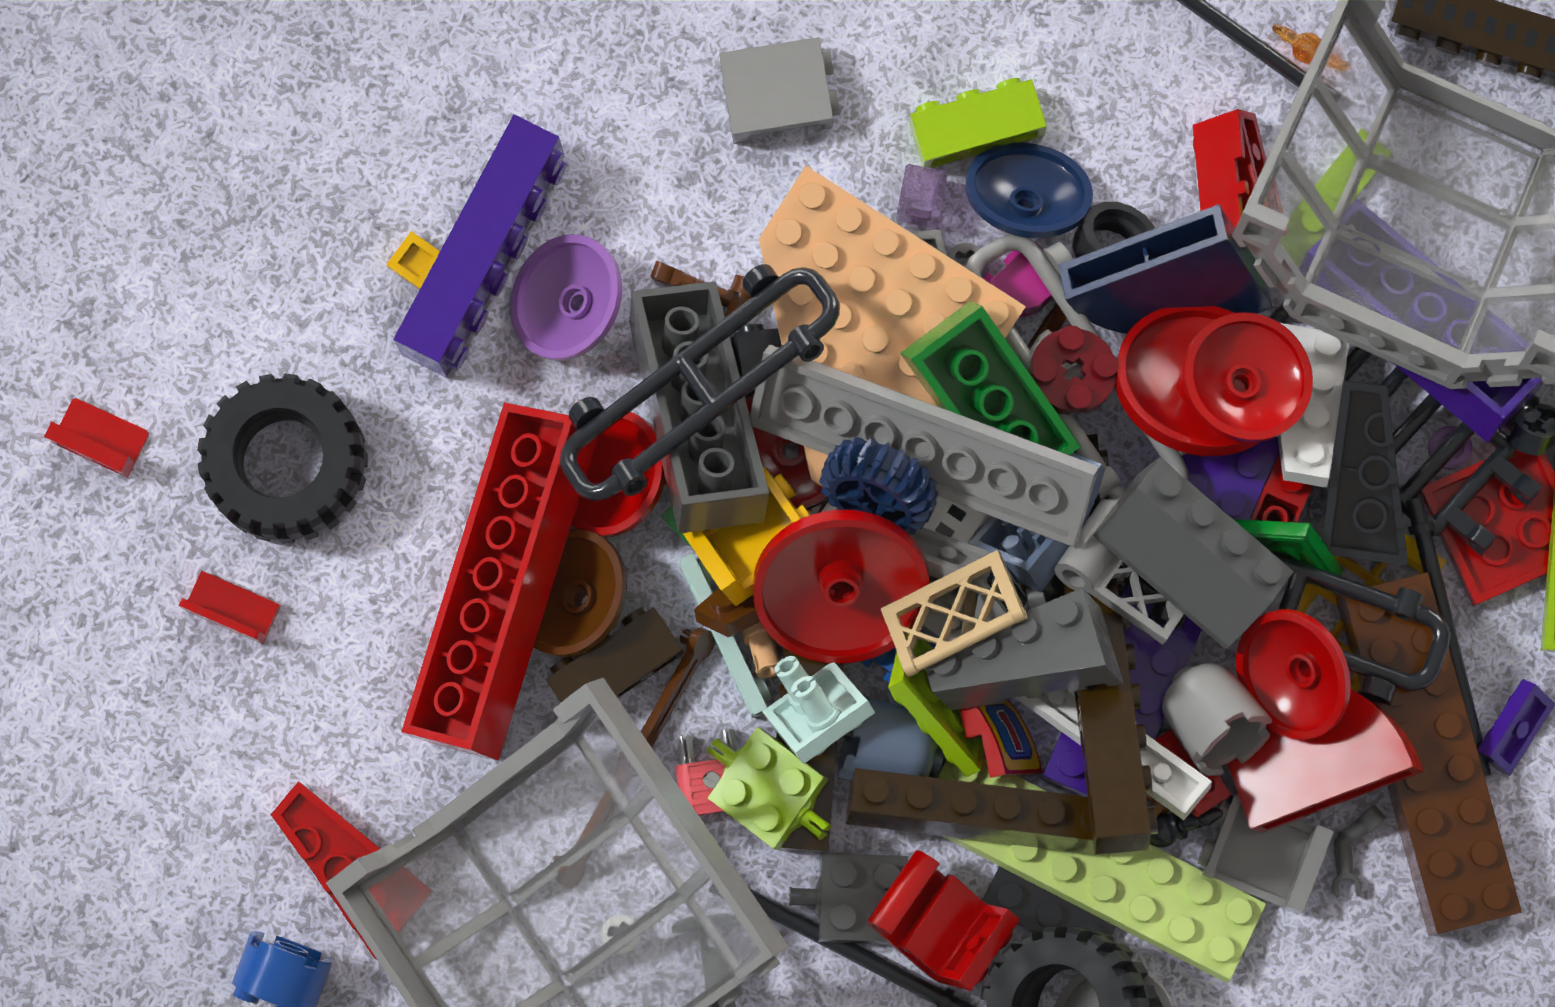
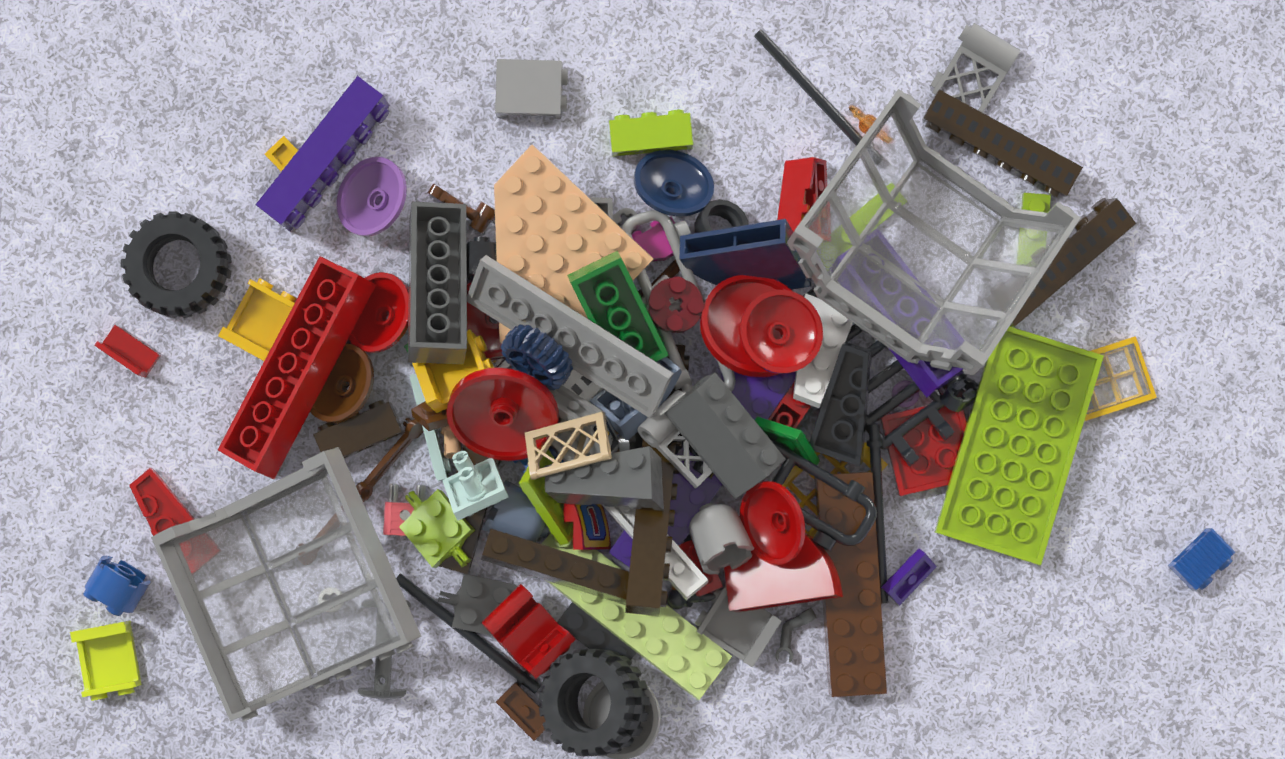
camera: 10 degrees right, 5 degrees up
(98, 437) = (66, 228): red panel -> none
(425, 519) = (258, 319): none -> yellow panel
(592, 419) = (369, 279): black bar -> none
(921, 196) = (607, 173): clear purple panel -> none

